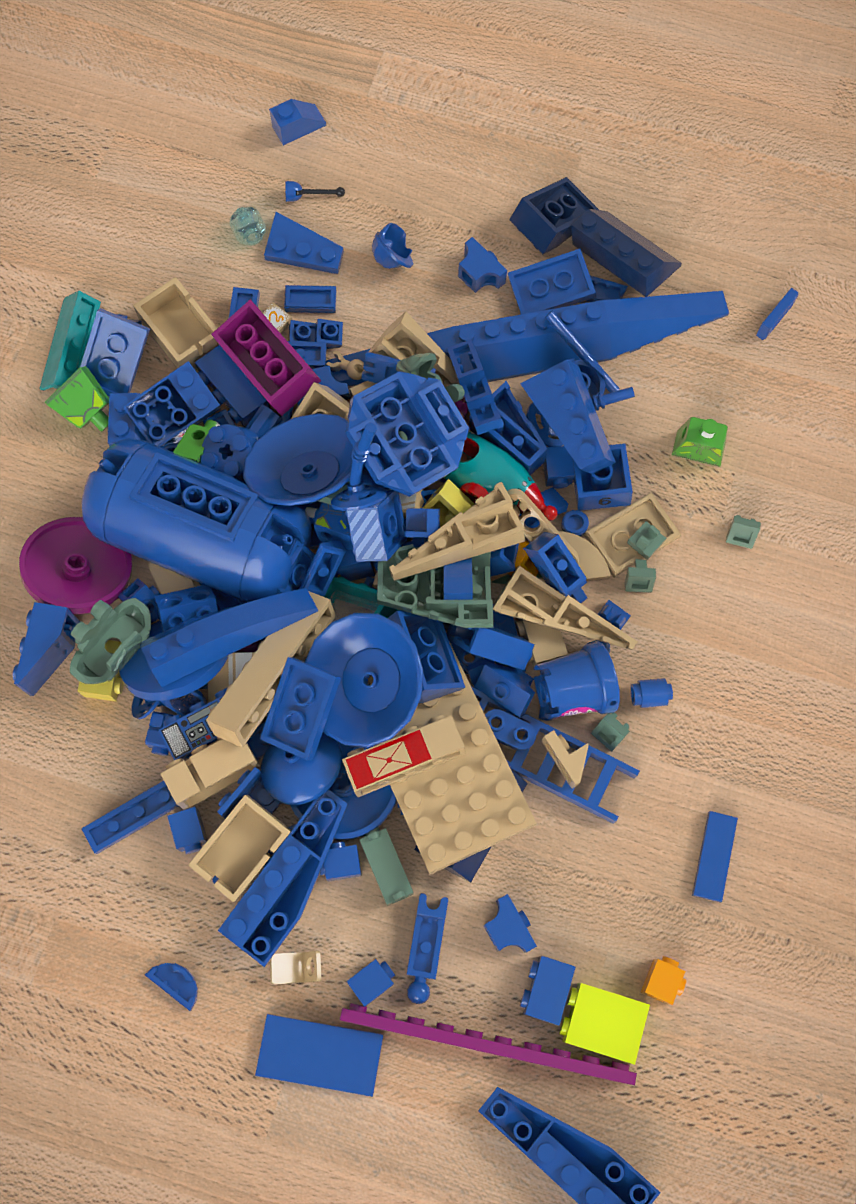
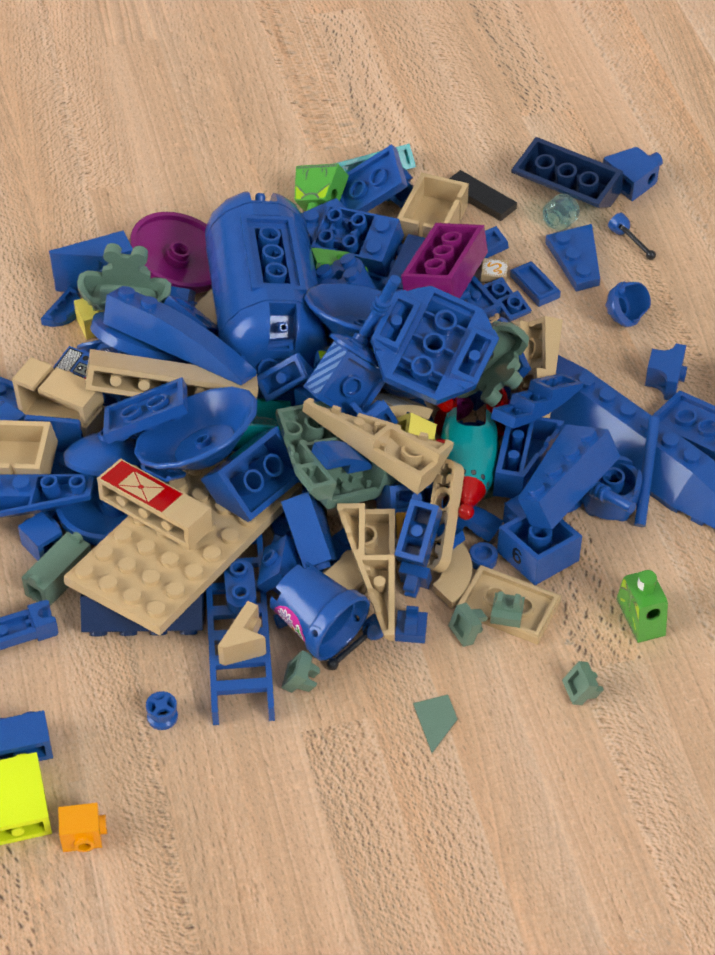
camera: 60 degrees right, 25 degrees down
(66, 700) = (62, 311): none -> blue tile
(185, 269) = (485, 197): none -> black tile
(214, 191) = (570, 173): none -> dark blue slope
(238, 140) = (638, 169): none -> blue torso
(295, 119) = (686, 194): blue slope -> none
(509, 927) = (58, 682): blue brick -> none
(588, 855) = (158, 703): none -> blue wheel
(651, 693) = (359, 686): blue brick -> none
(705, 653) = (436, 718): none -> sand green sticker
(715, 856) = (234, 818): blue tile -> none

